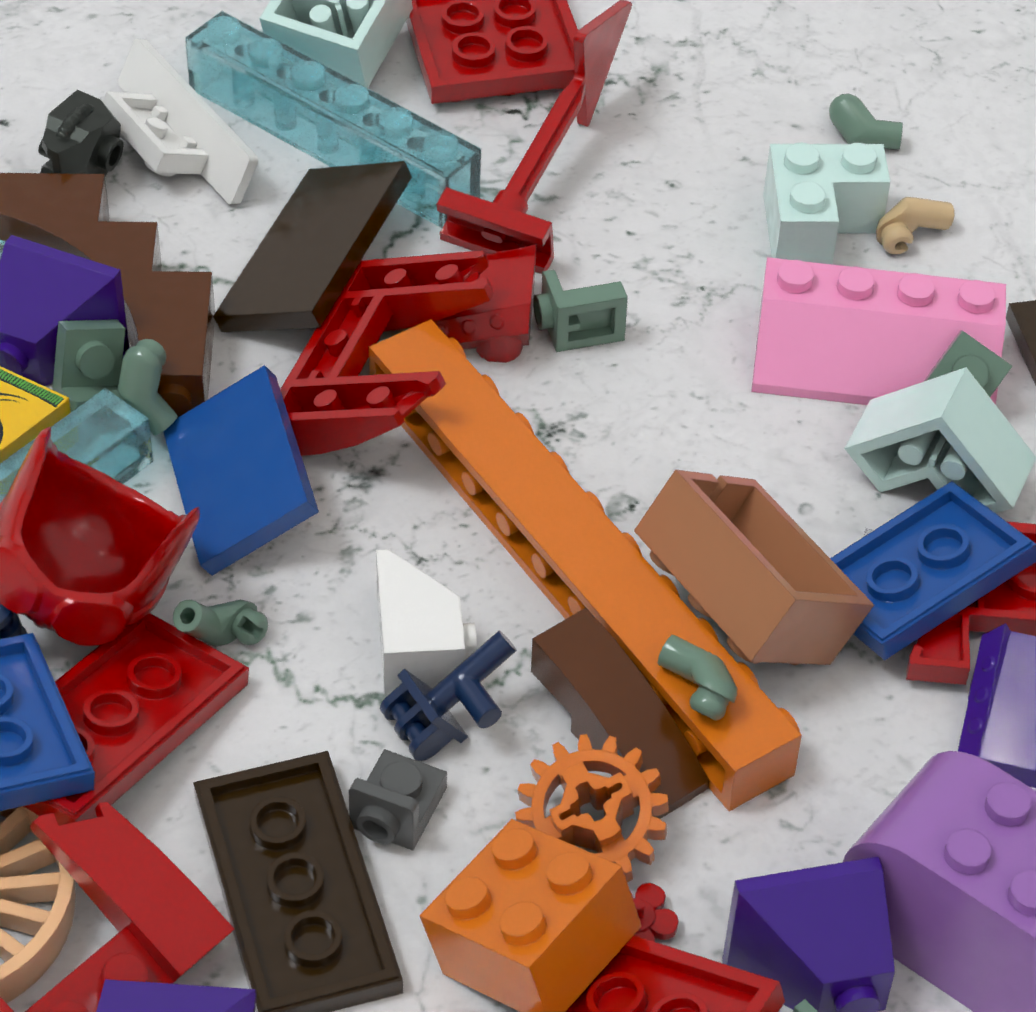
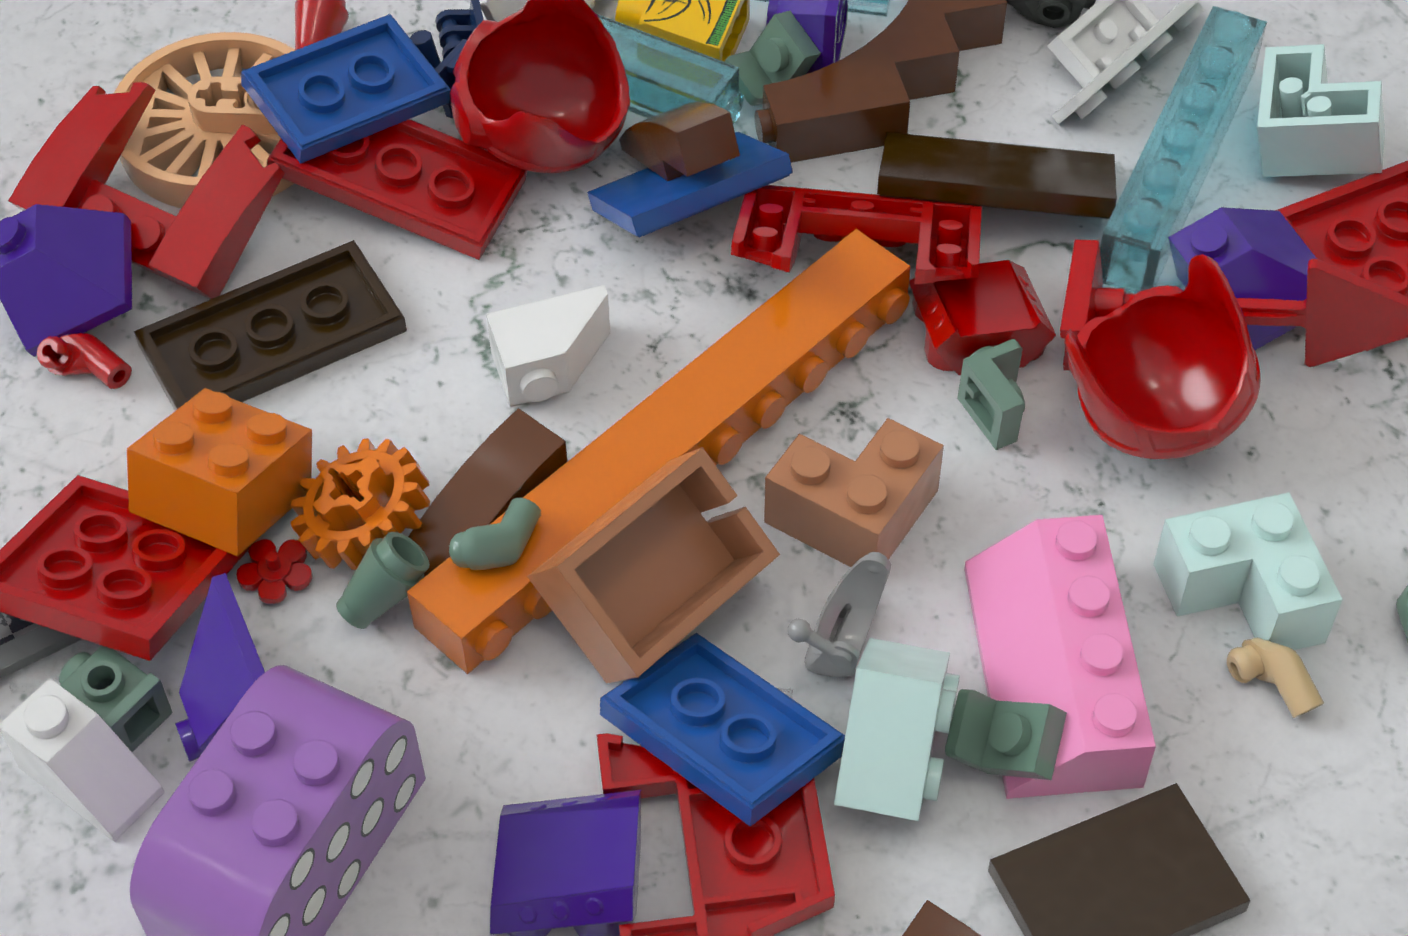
camera: 80 degrees right, 5 degrees up
(140, 382) = (746, 91): sand green arm -> none
(203, 440) = (682, 140): none -> reddish brown slope
(221, 622) = (532, 227): sand green arm -> none
(396, 800) = (362, 375): dark grey bracket -> none
(424, 711) = (463, 377): dark blue arm -> none
(501, 113) = (1256, 254): none -> dark purple slope
(623, 172) = (1168, 367): none -> red piece
(678, 420) = (851, 504): none -> nougat brick
(701, 801) = (382, 579): none -> sand green cone
(809, 484) = (854, 601): none -> light grey helmet

